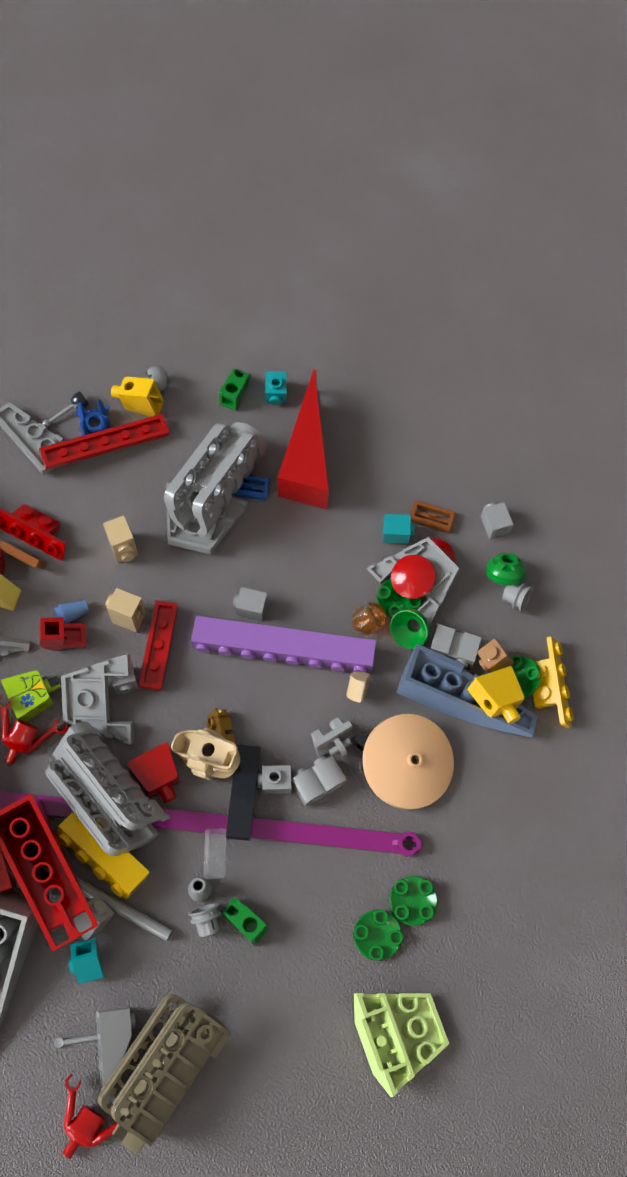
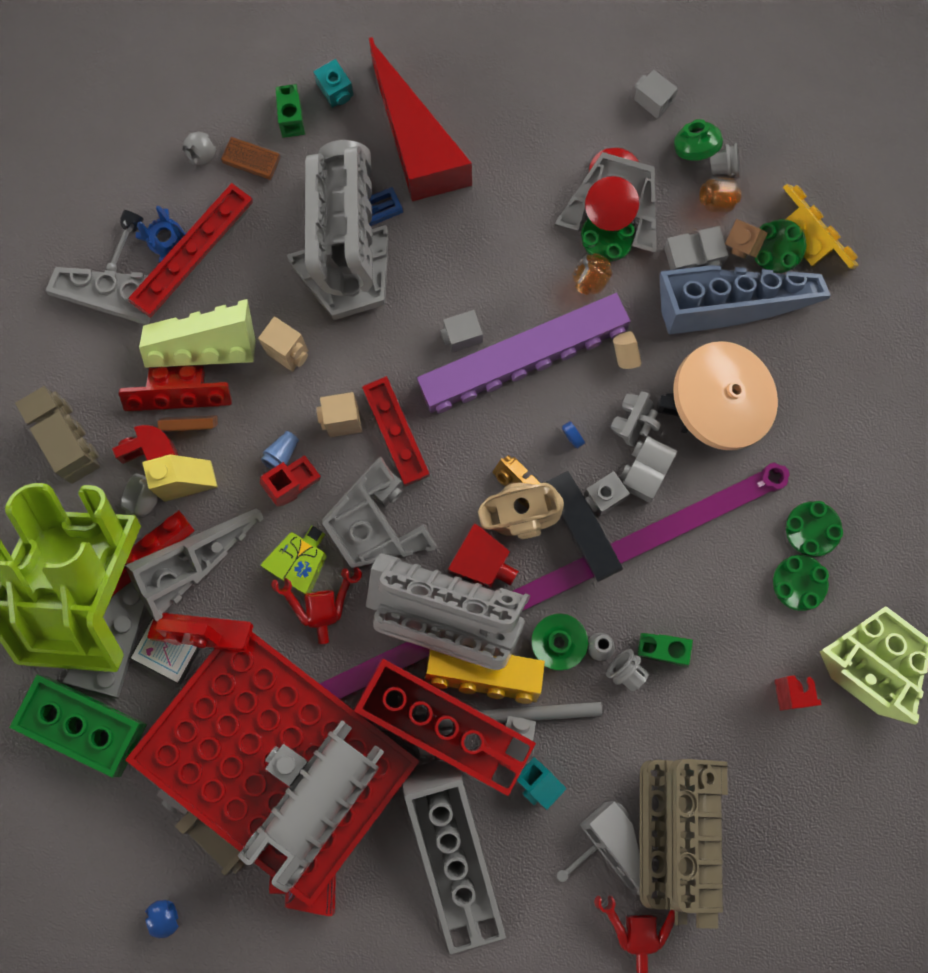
camera: 25 degrees left, 10 degrees up
(69, 503) = (201, 338): none -> yellowish green wedge
(139, 395) = (193, 177): yellow torso -> none
(165, 855) = (563, 627): none -> green dish
(187, 405) = (250, 158): none -> dark orange tile
(214, 853) = (593, 603): clear slope -> none
(280, 723) = (573, 435): none -> blue tile
(315, 1019) = (791, 693): none -> red hinge
(397, 528) = (561, 162): teal brick -> none
(402, 631) = (641, 270): green piece -> none
(446, 523) = (569, 142): dark orange tile -> none
(498, 616) = (720, 194): none -> clear orange head
(498, 694) = (775, 274): yellow torso -> none

